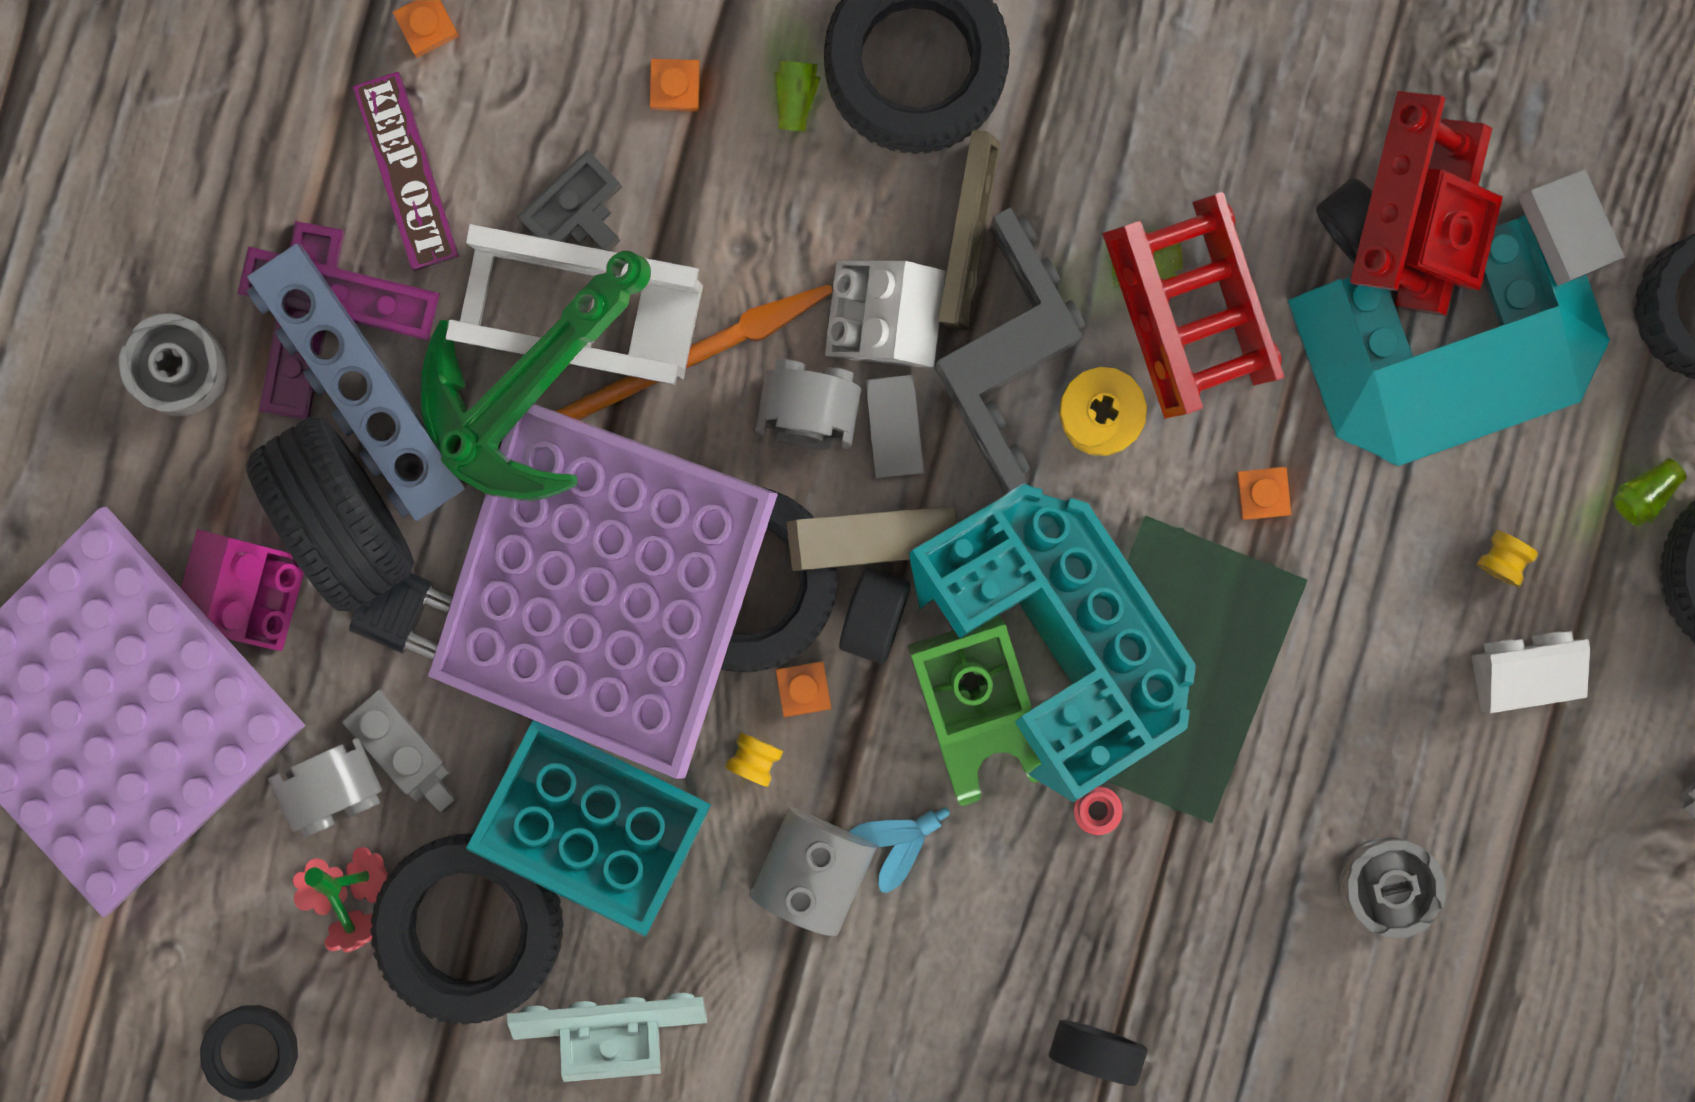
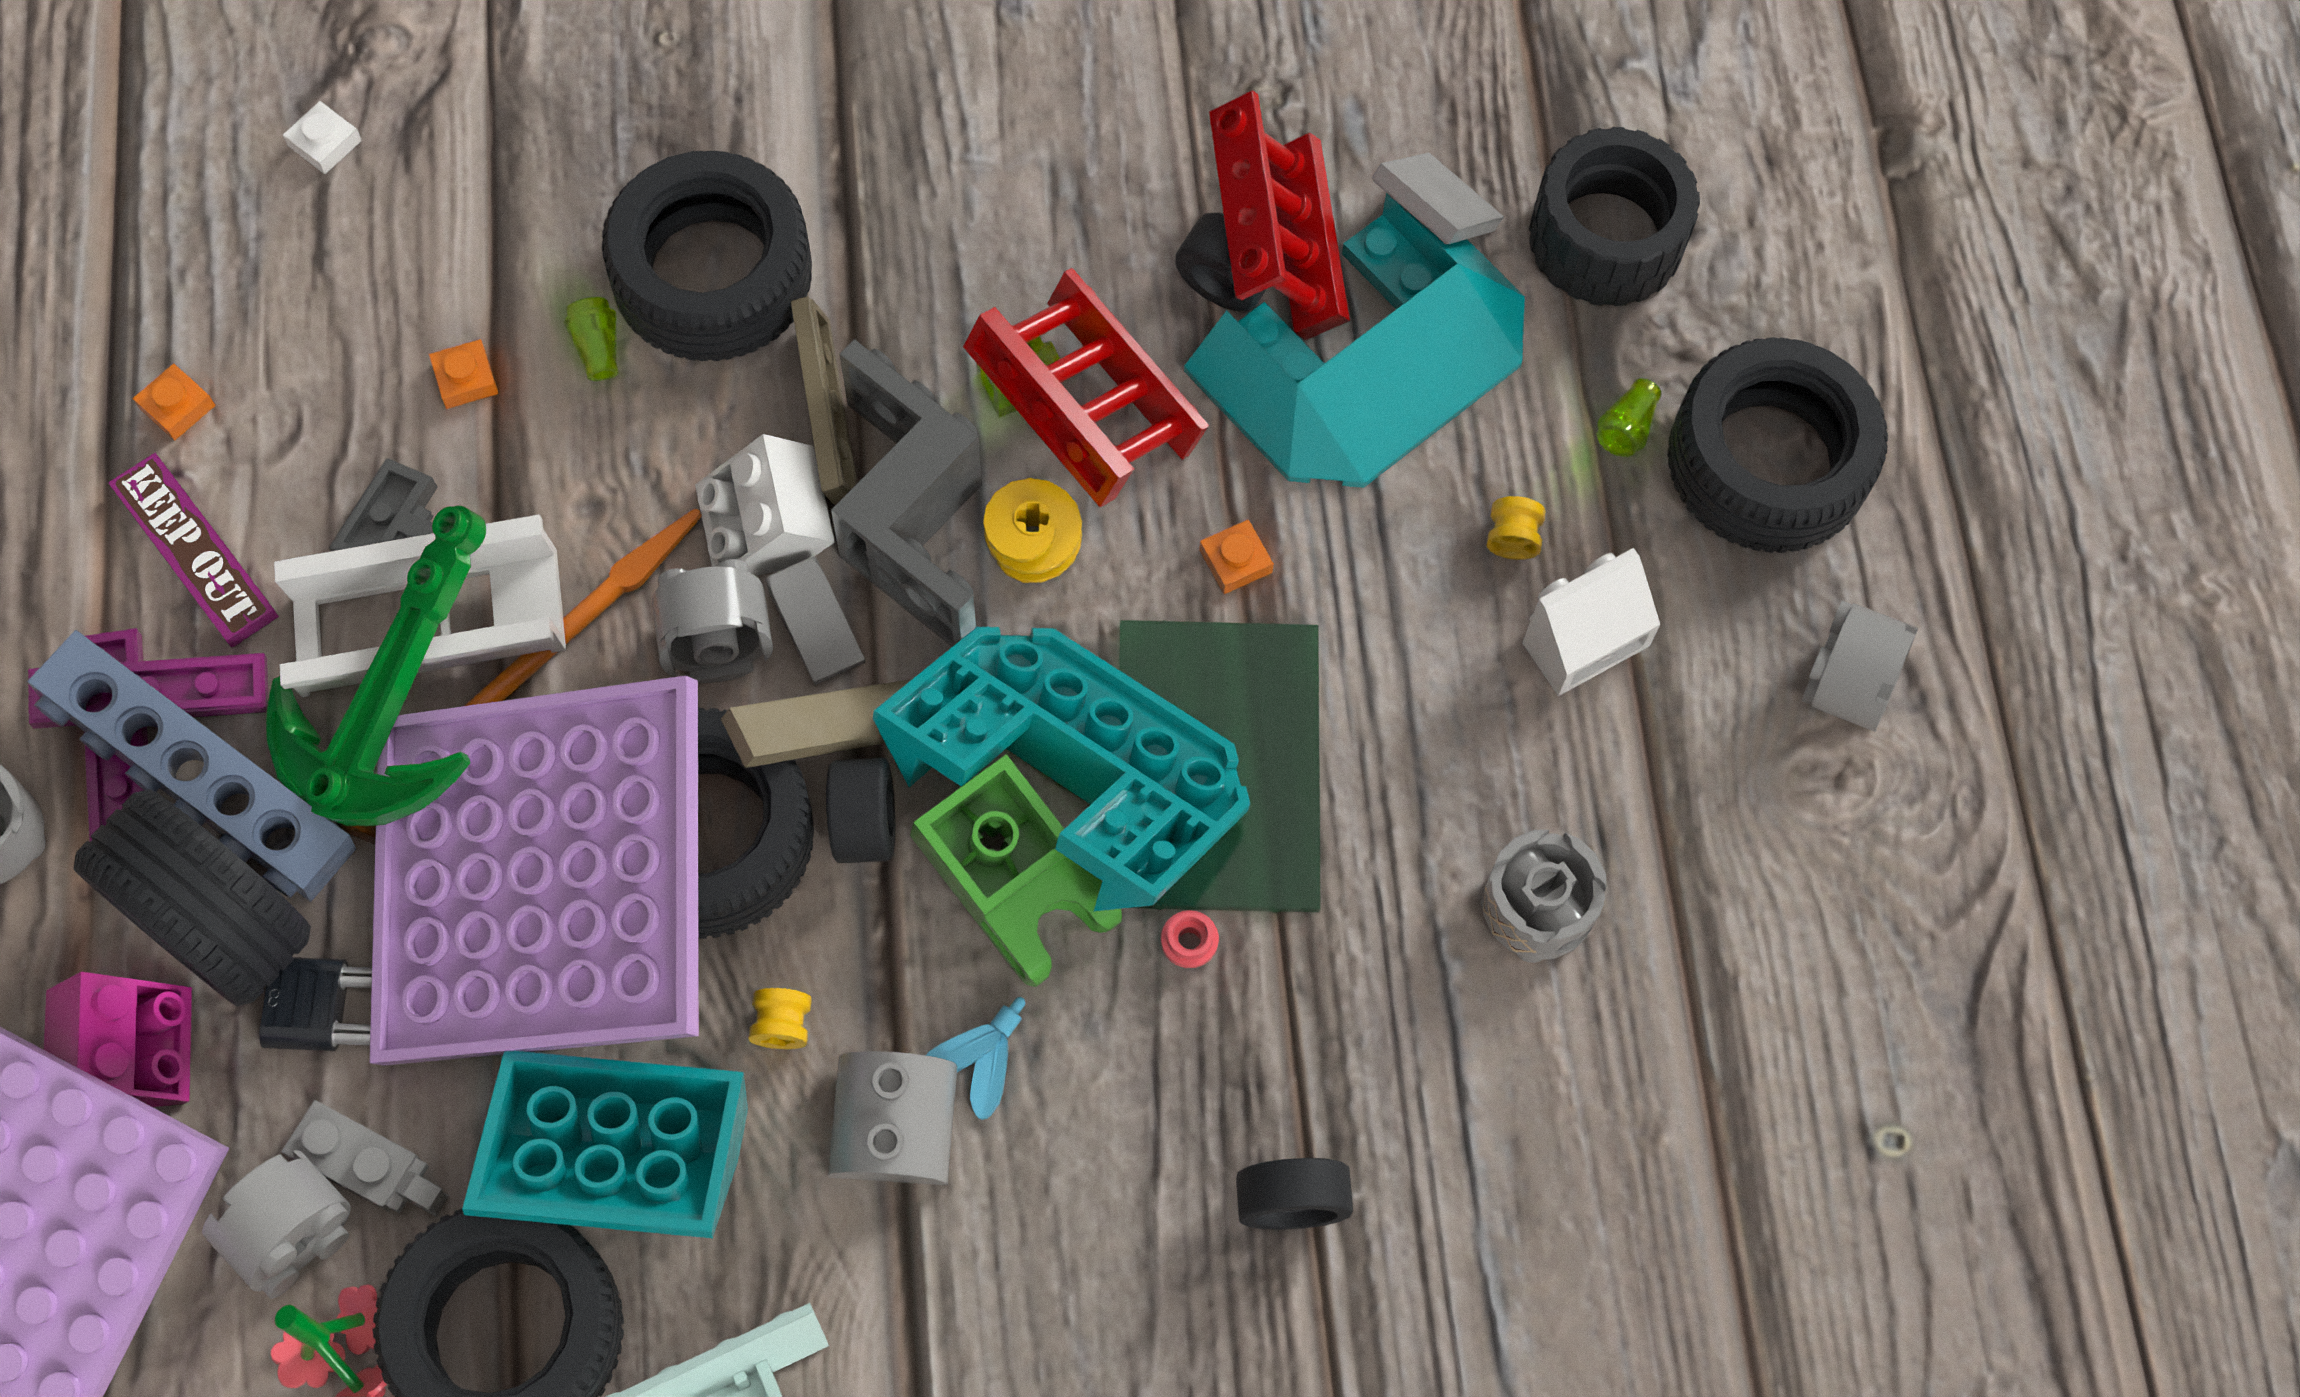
camera: 25 degrees left, 20 degrees down
(803, 689) = (811, 928): orange plate -> none
(1453, 229) = (1321, 228): red tile -> none

